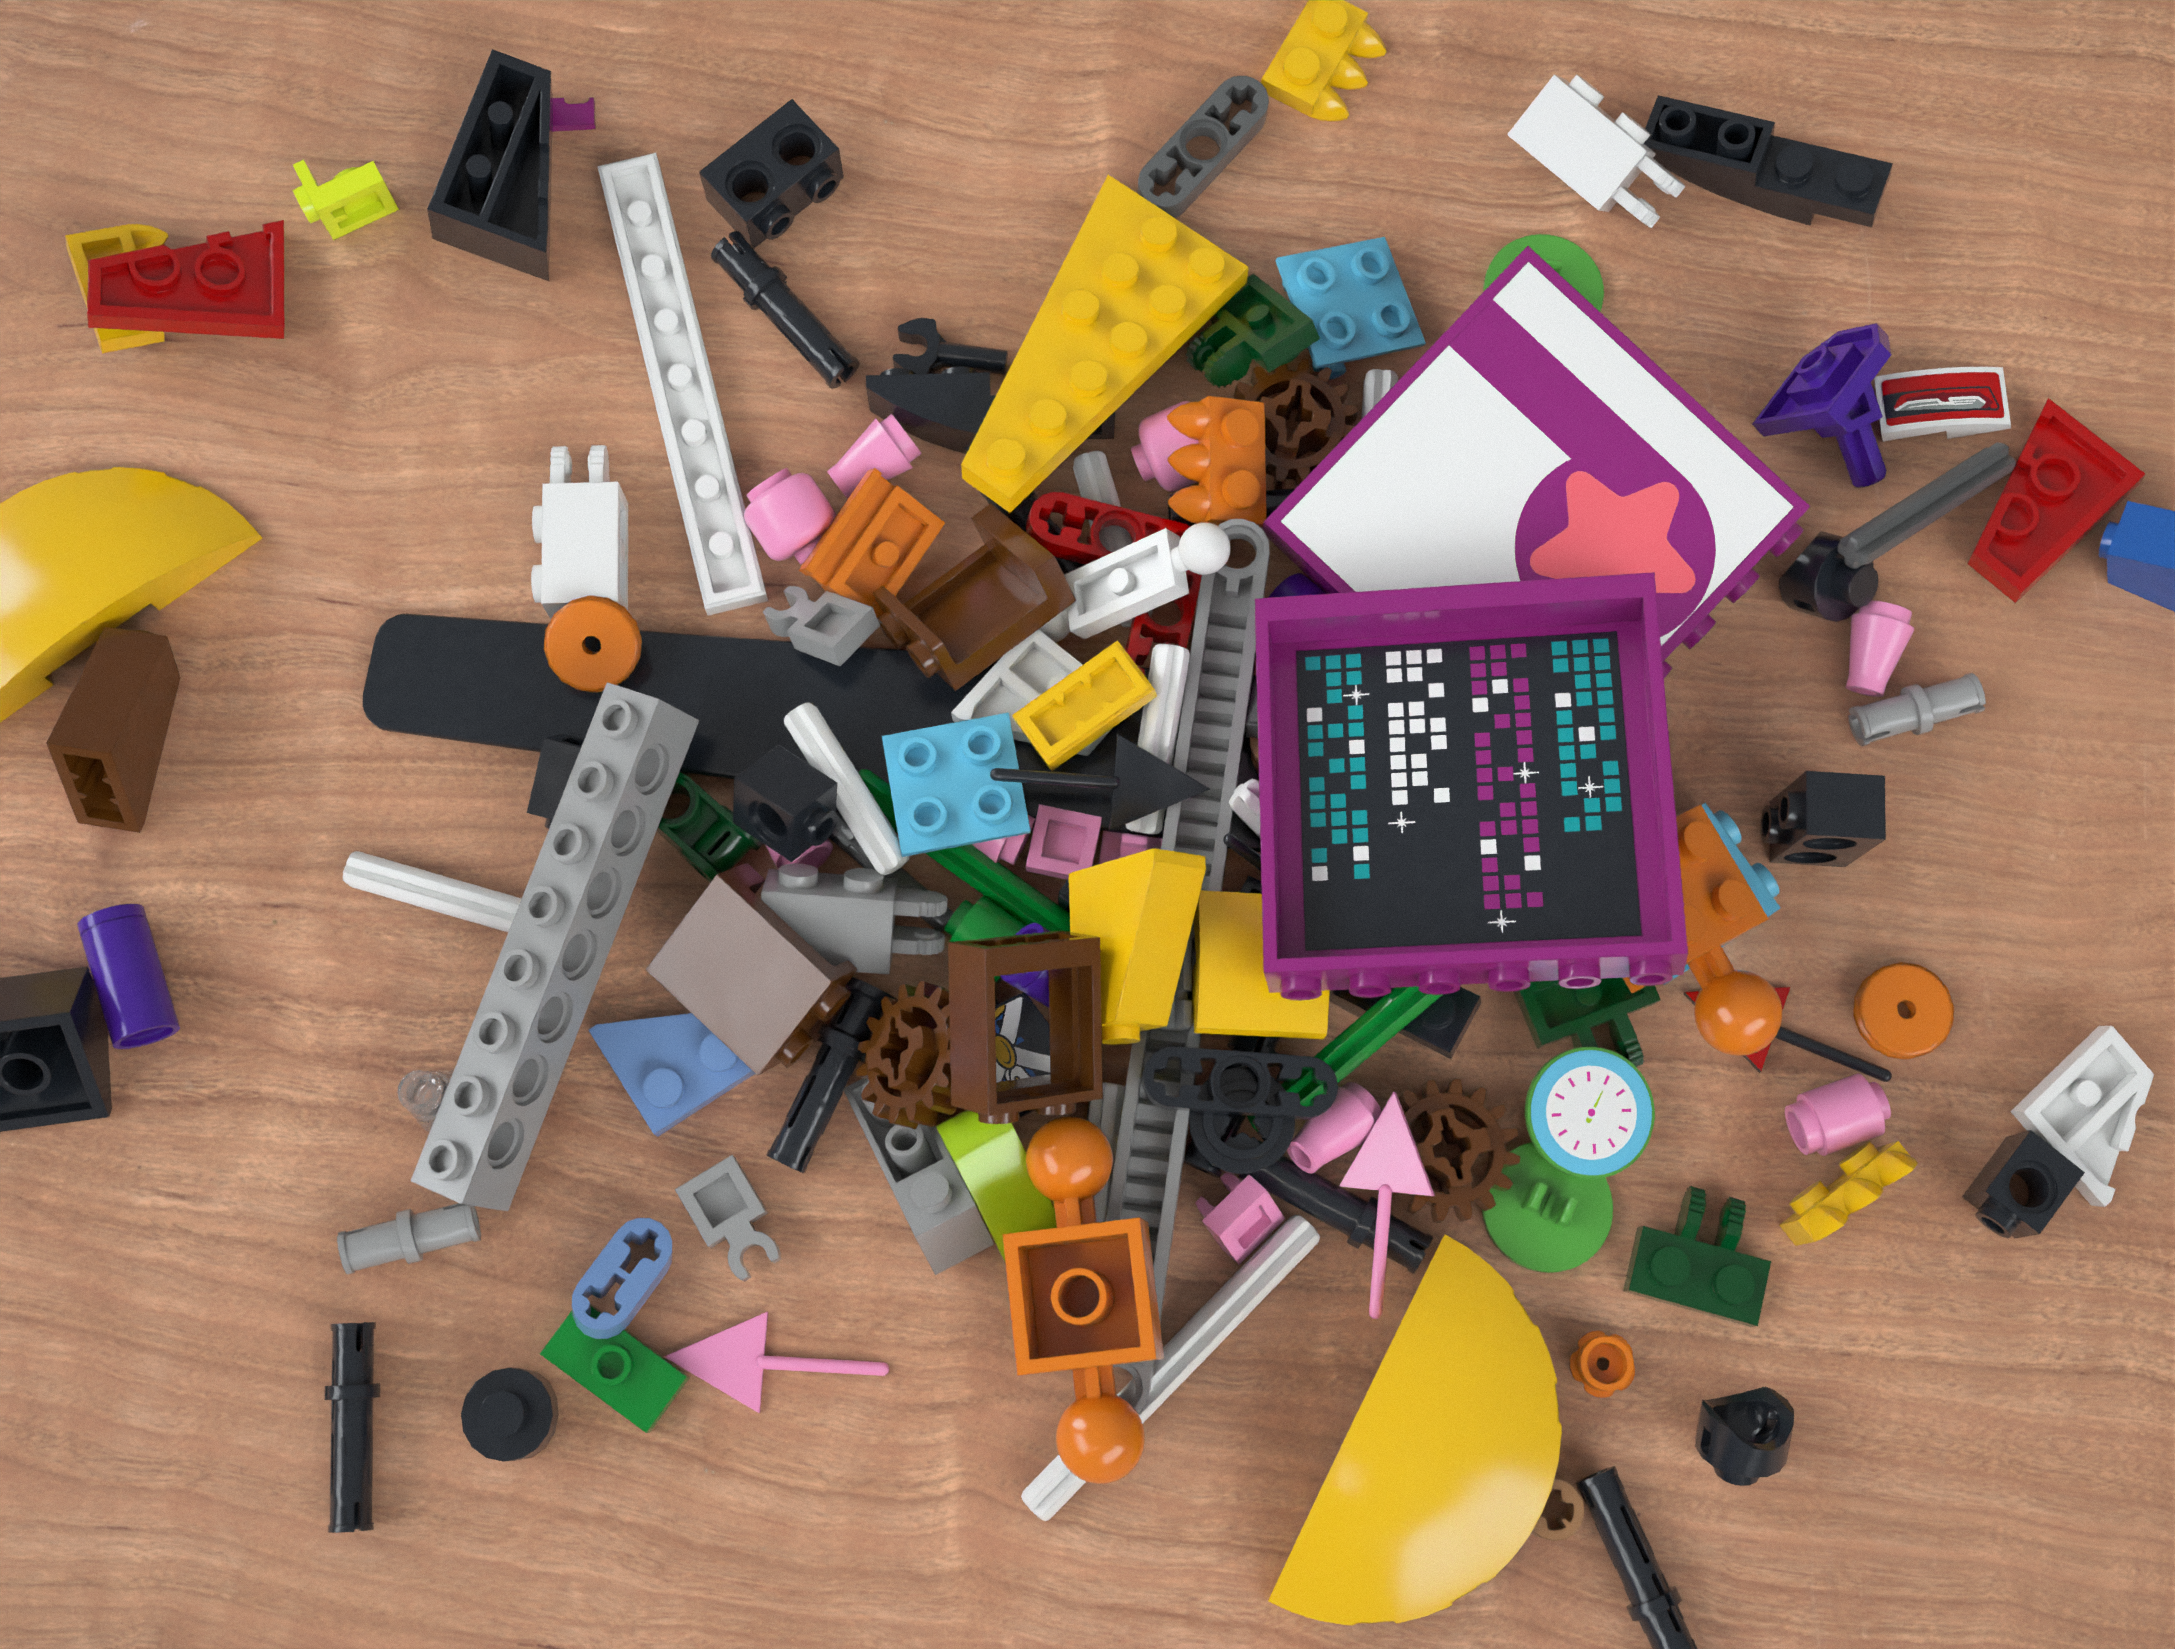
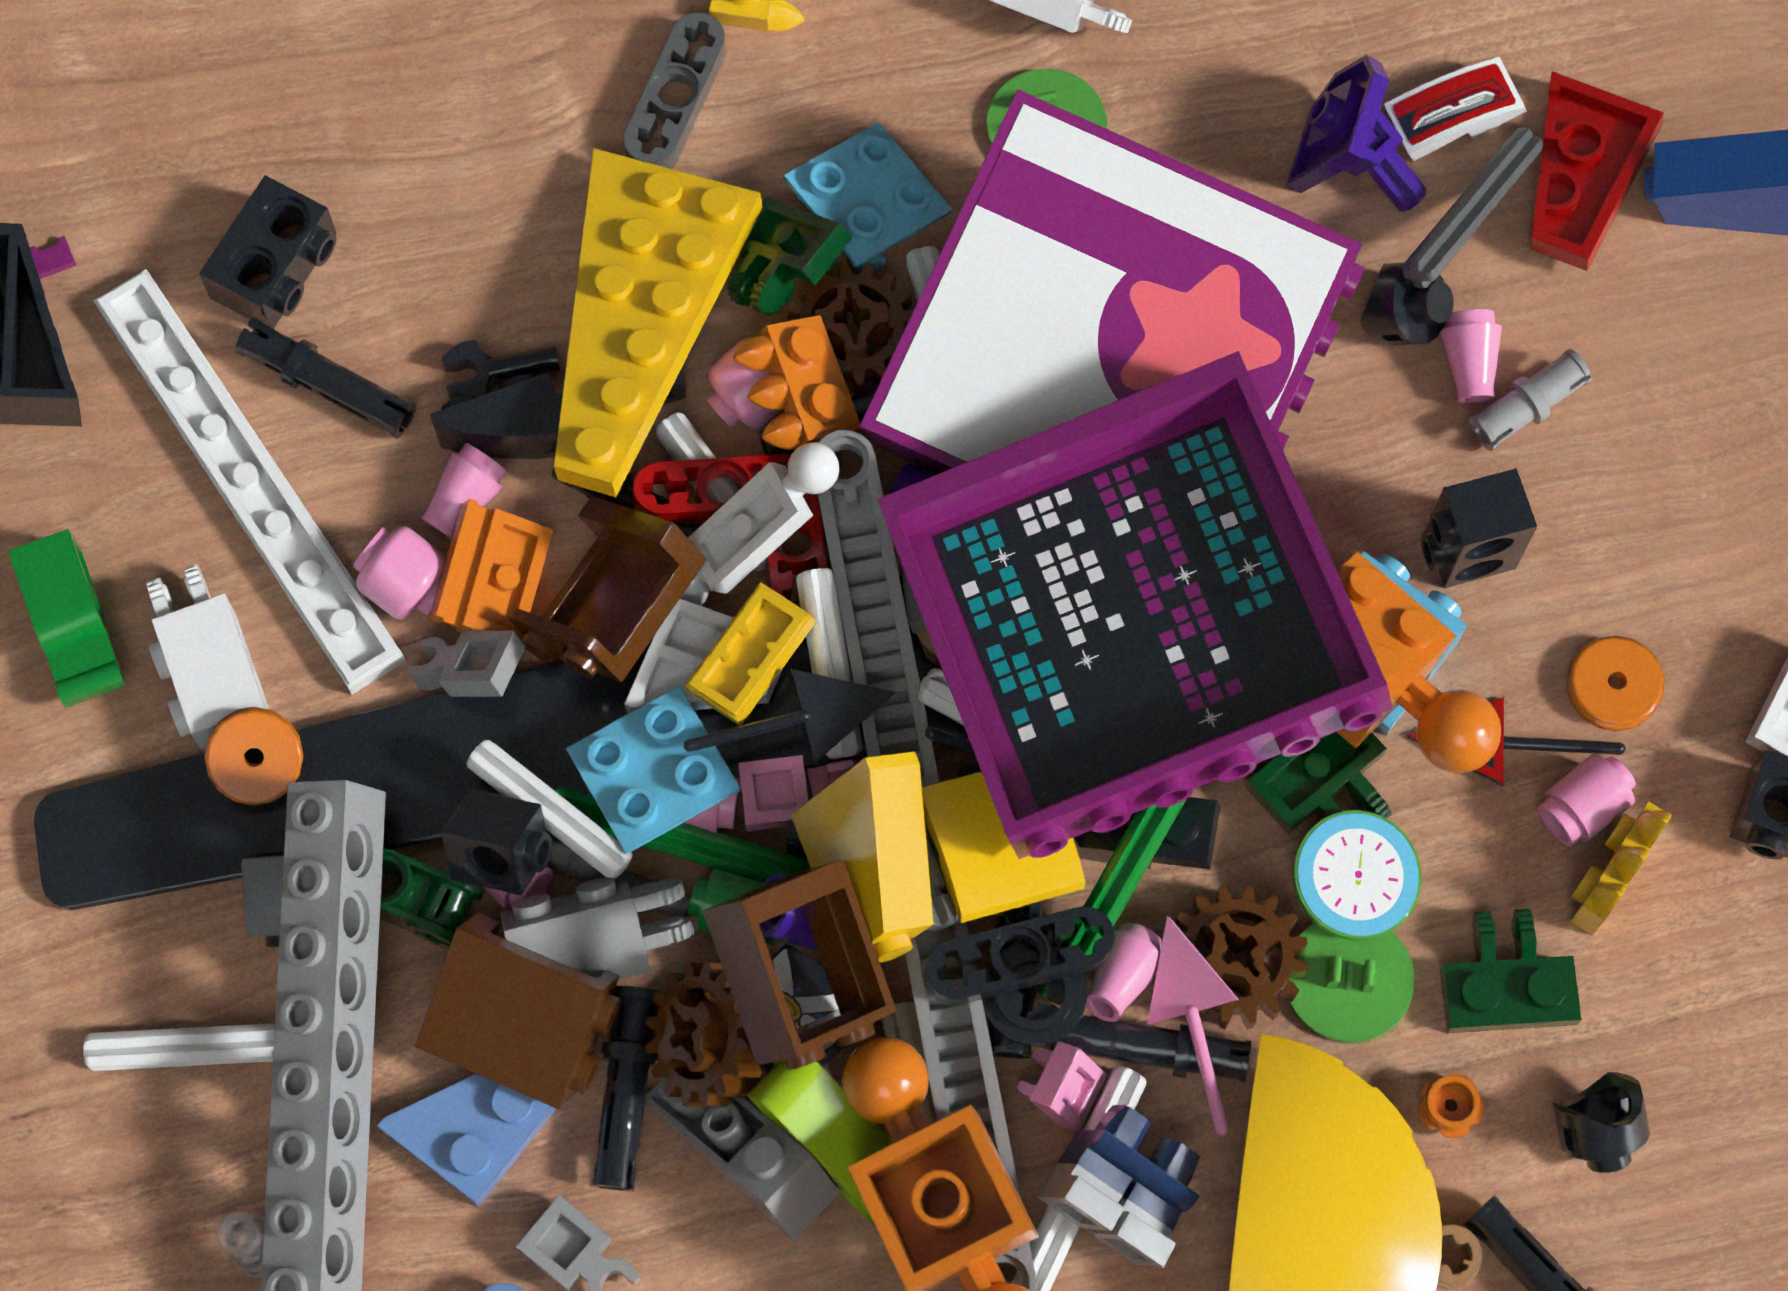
camera: 15 degrees left, 5 degrees down
(470, 454) = (67, 617): none -> green piece
(1256, 1340) = (1121, 1193): none -> hips

